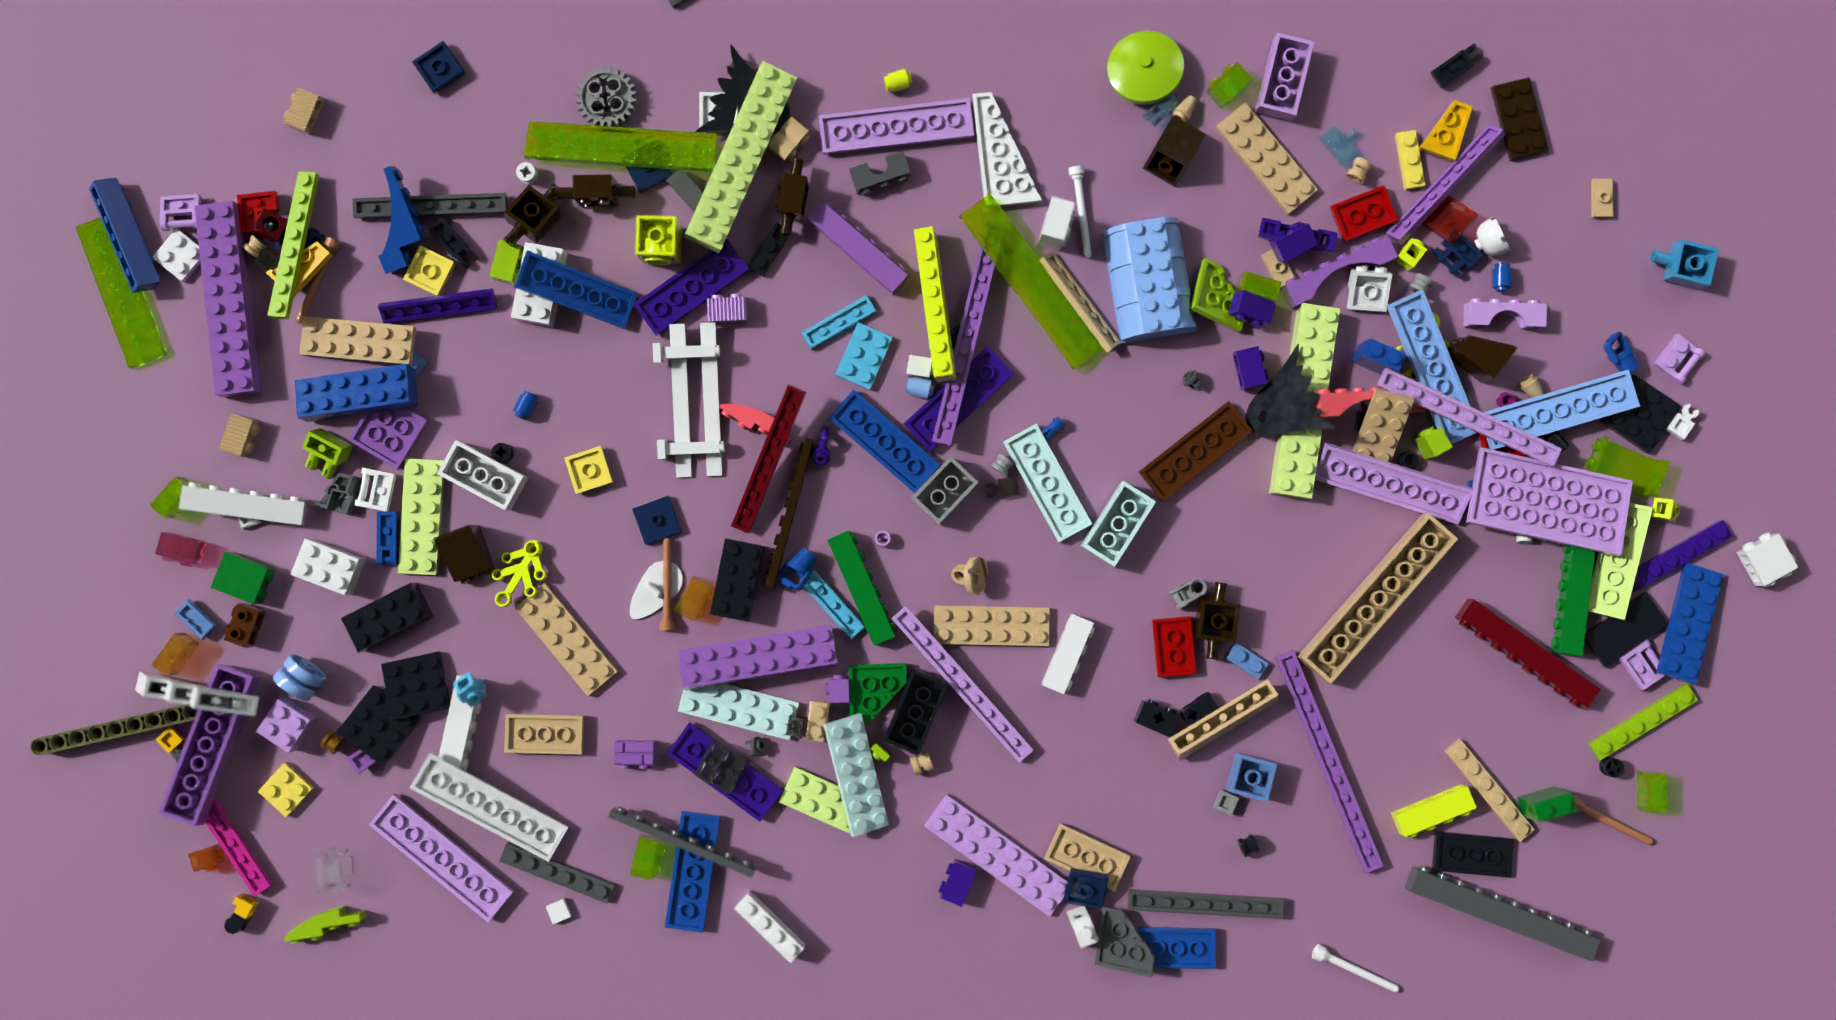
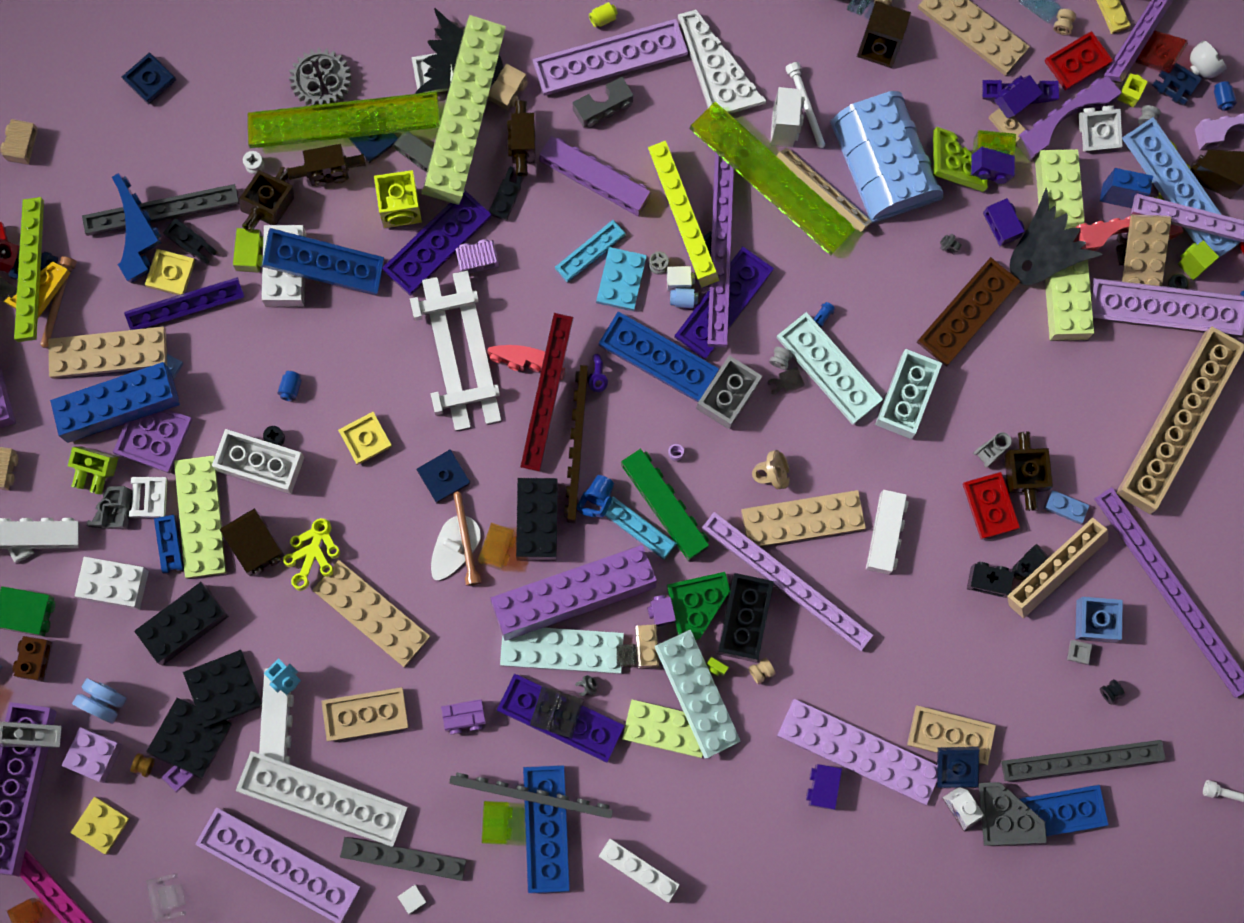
camera: 15 degrees left, 10 degrees down
(903, 343) = (660, 259): none -> light grey wheel

